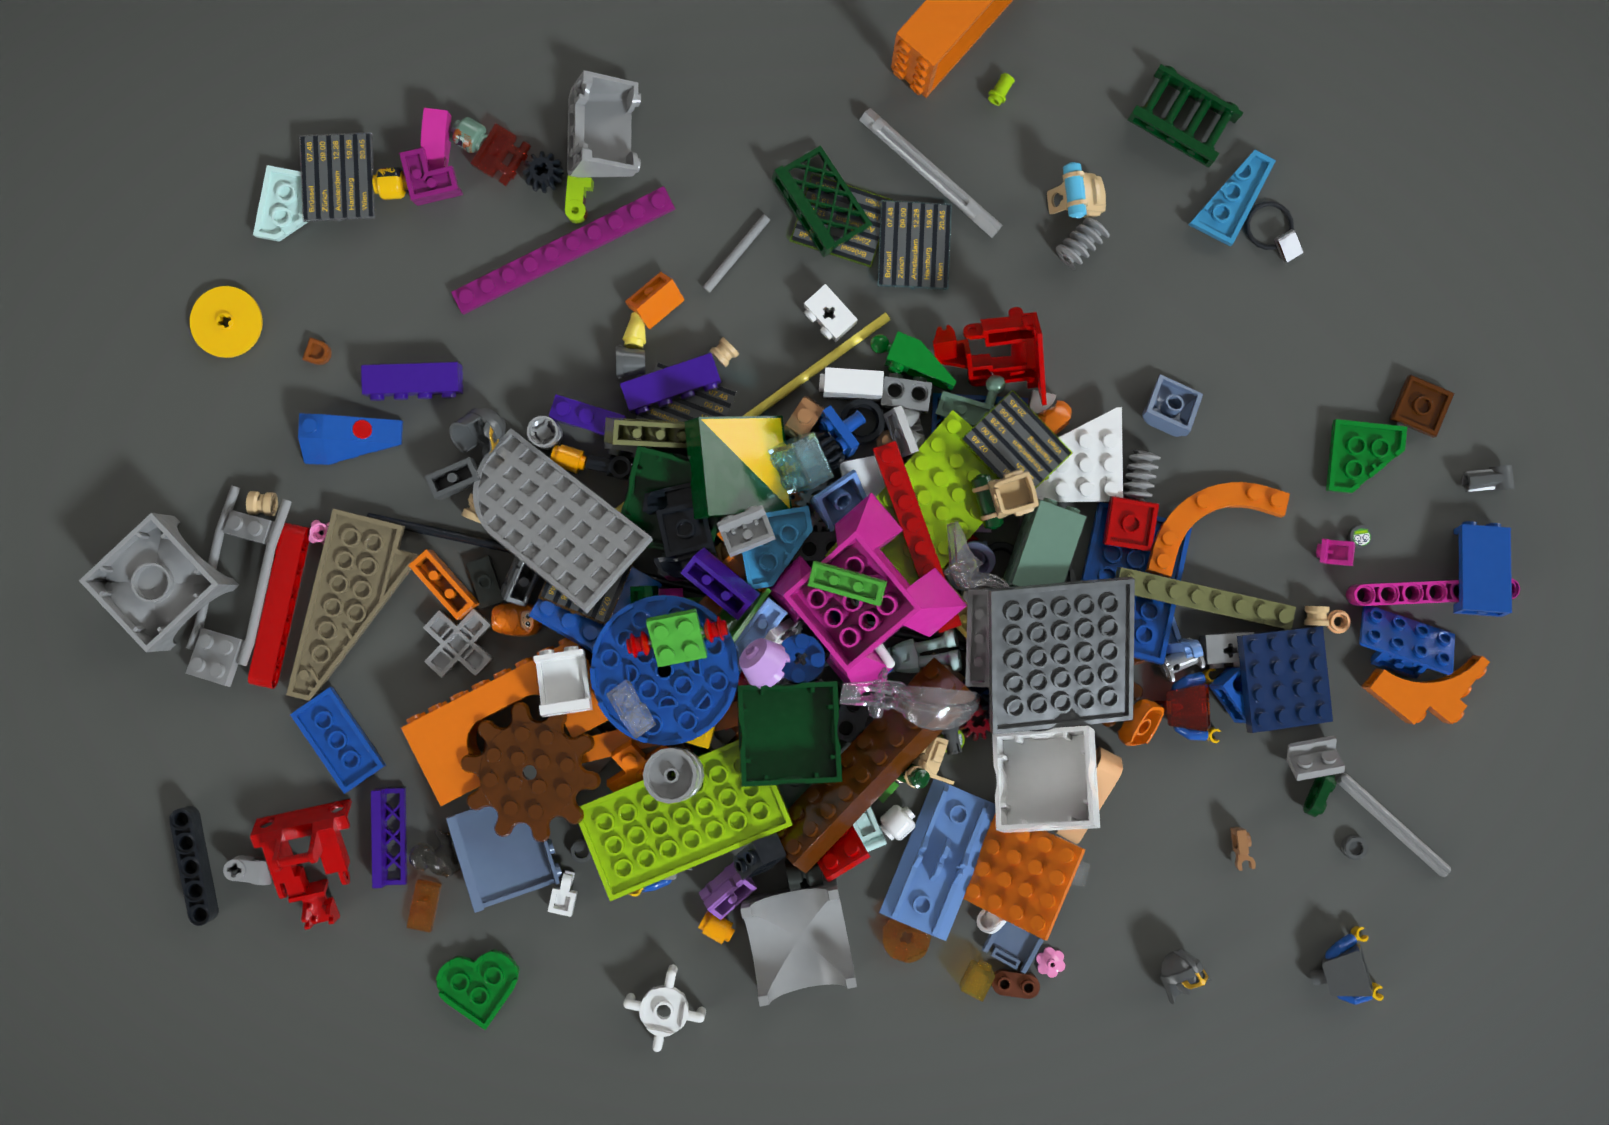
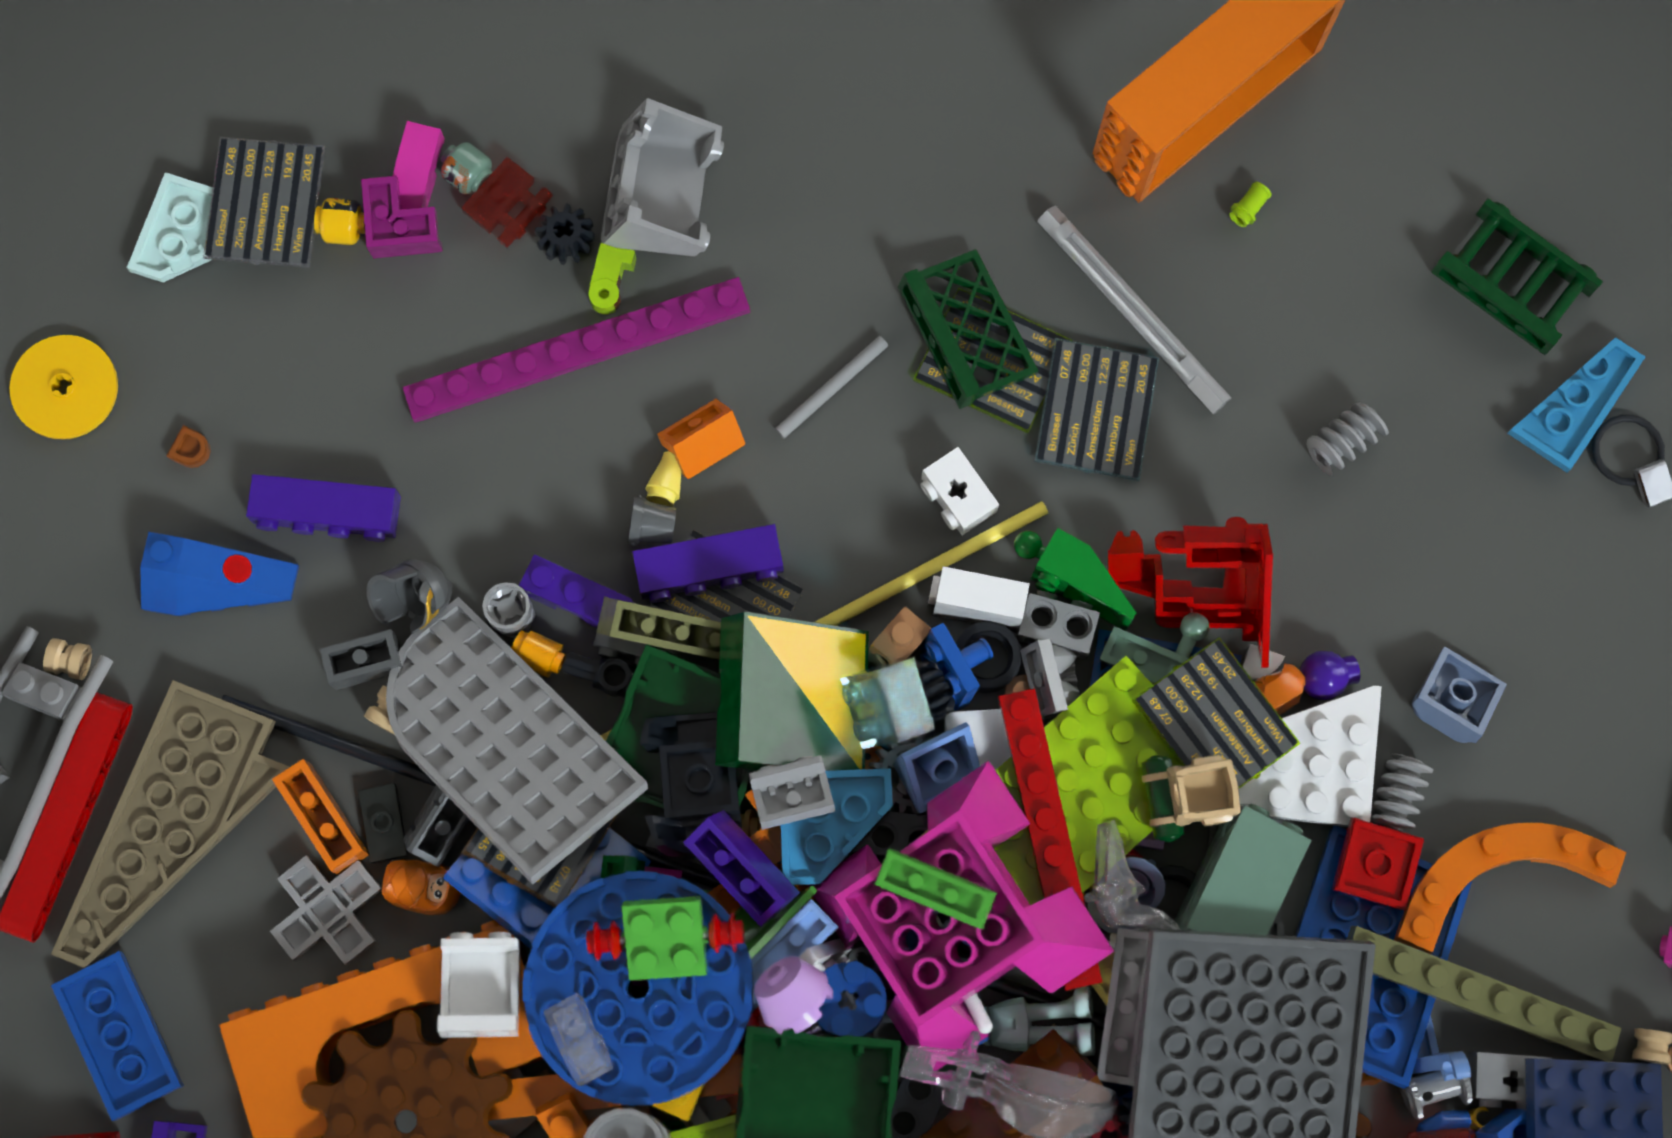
camera: 10 degrees right, 10 degrees down
(316, 527) = (141, 707): bright pink plate -> none
(724, 352) = (794, 527): tan wheel -> none
(1081, 192) = (1353, 365): tan piece -> none
(1086, 403) = (1329, 674): none -> dark purple piece

